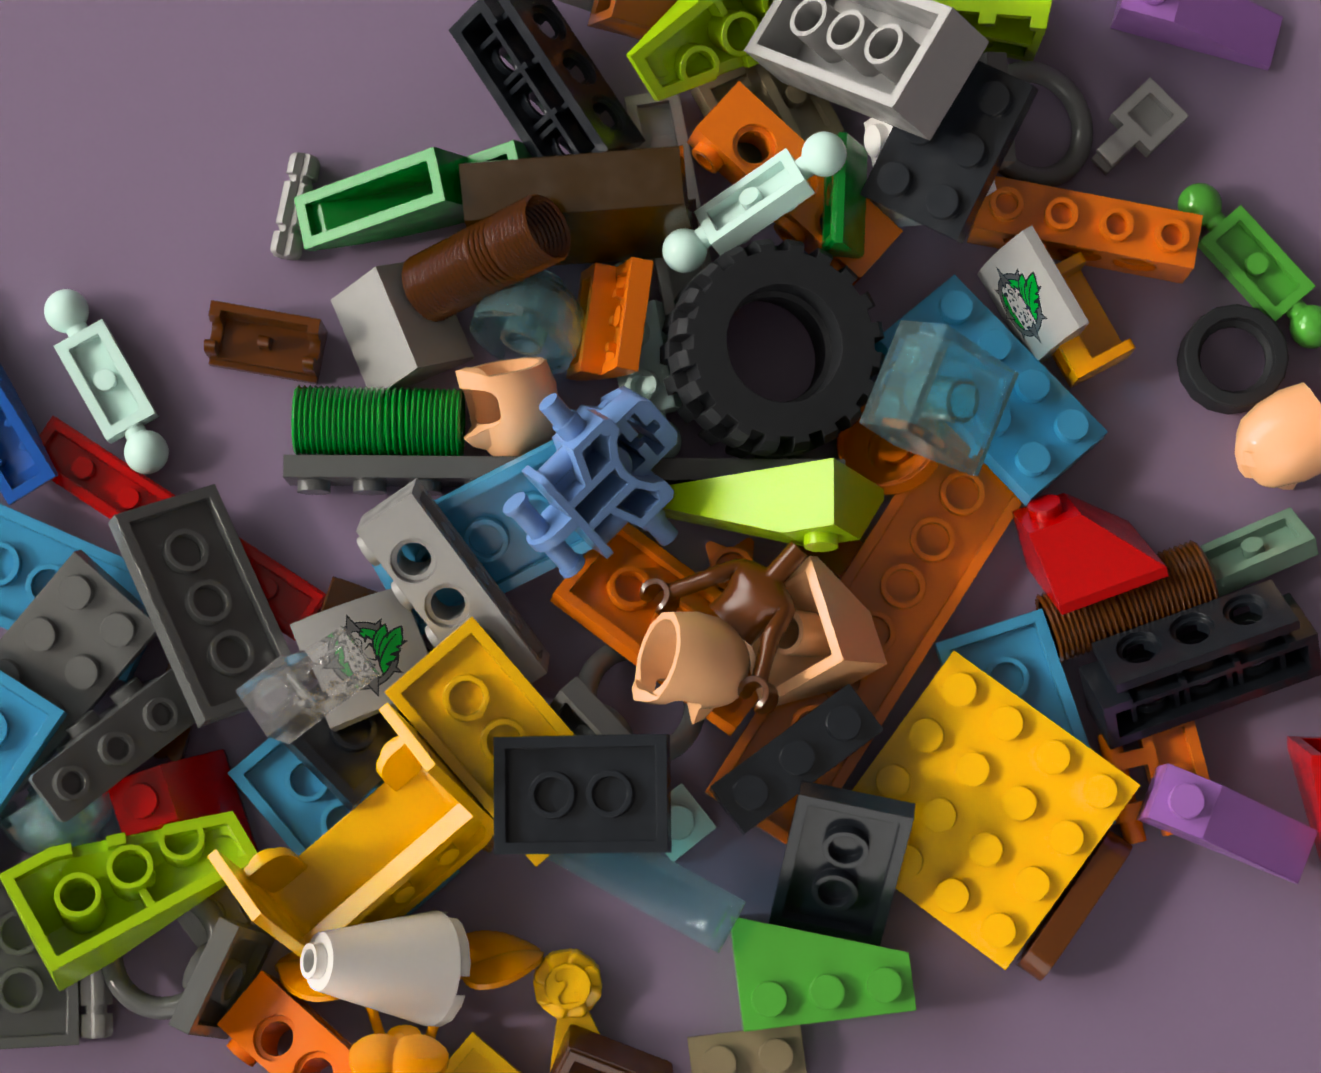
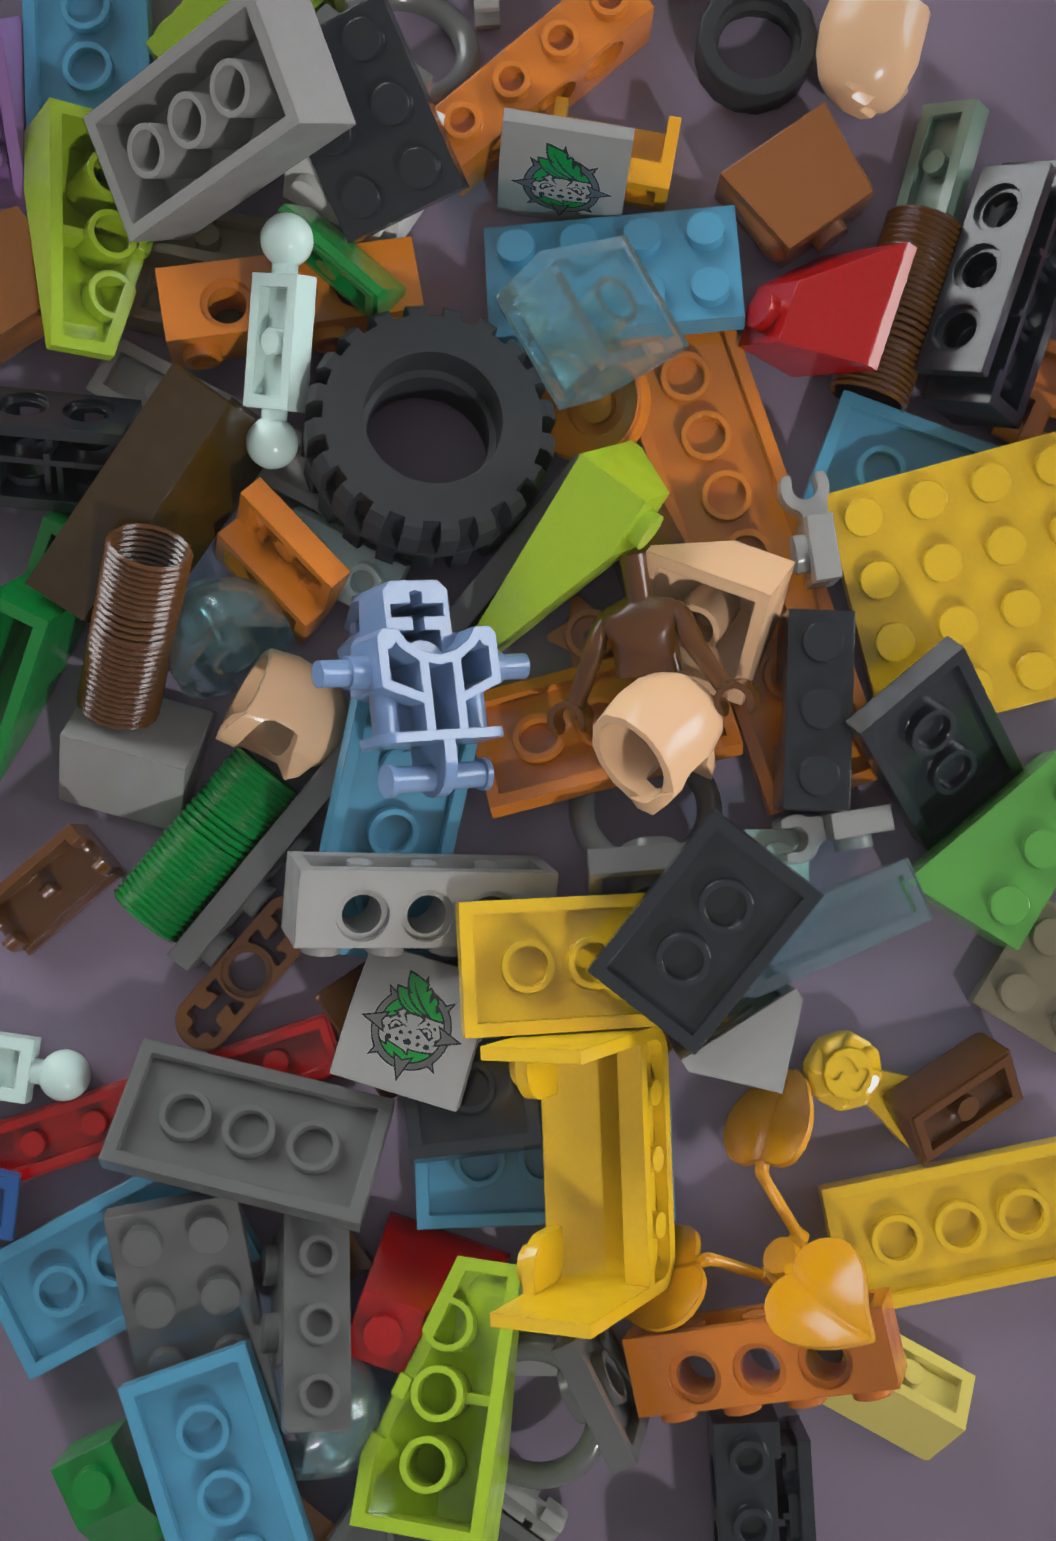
camera: 50 degrees left, 5 degrees up
(273, 505) = (204, 996): none -> reddish brown beam
(307, 685) = (401, 1105): clear arch -> none
(393, 966) = (715, 1221): white cone -> none
(530, 895) = (753, 1043): none -> light grey slope
(737, 850) = (847, 830): none -> light grey plate
(909, 671) = (816, 543): none -> light grey plate
(1155, 467) = (797, 189): none -> dark orange torso

